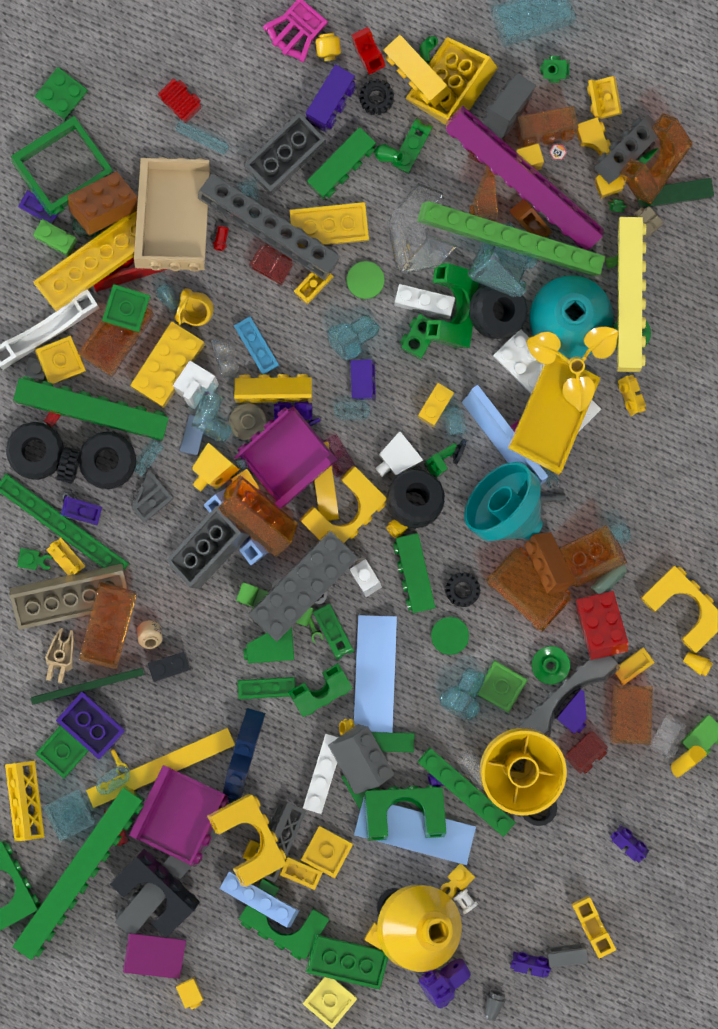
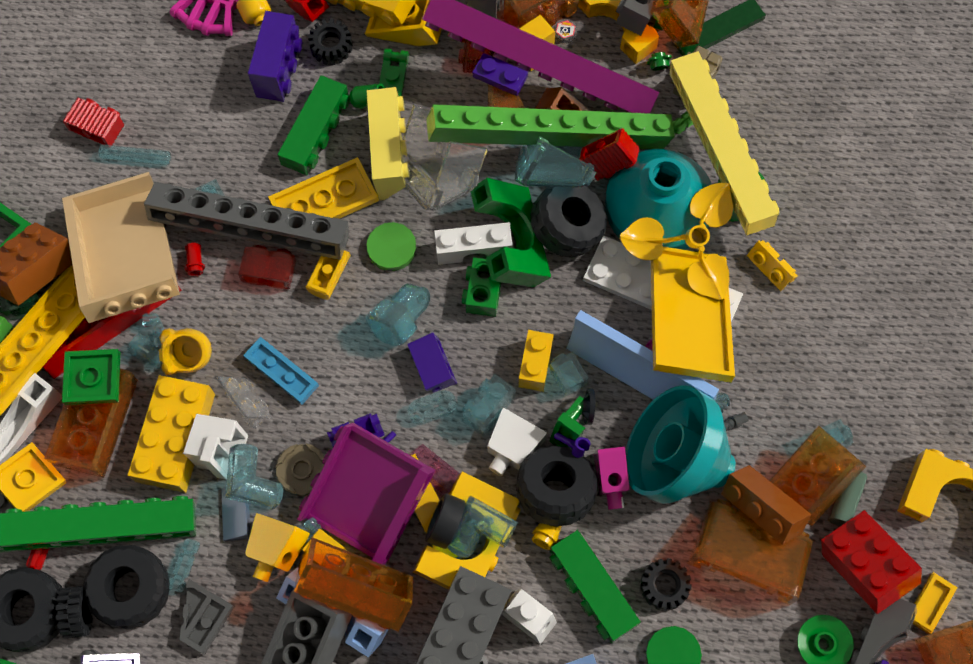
camera: 15 degrees left, 15 degrees down
(179, 282) = (153, 320): none -> clear light blue arm
(273, 389) = (317, 417): yellow slope -> none
(285, 154) = (240, 135): dark grey brick -> none
(332, 496) = (445, 521): none -> black tyre
(353, 503) = (480, 521): none -> clear light blue brick
(389, 201) = (386, 141): none -> light yellow slope
(390, 425) = (486, 408): none -> clear light blue brick
(437, 476) = (578, 447): none -> dark purple hand
(457, 496) = (612, 462): none -> dark pink torso
(489, 183) = (500, 74): none -> dark purple plate
(545, 273) = (610, 154): none -> red brick

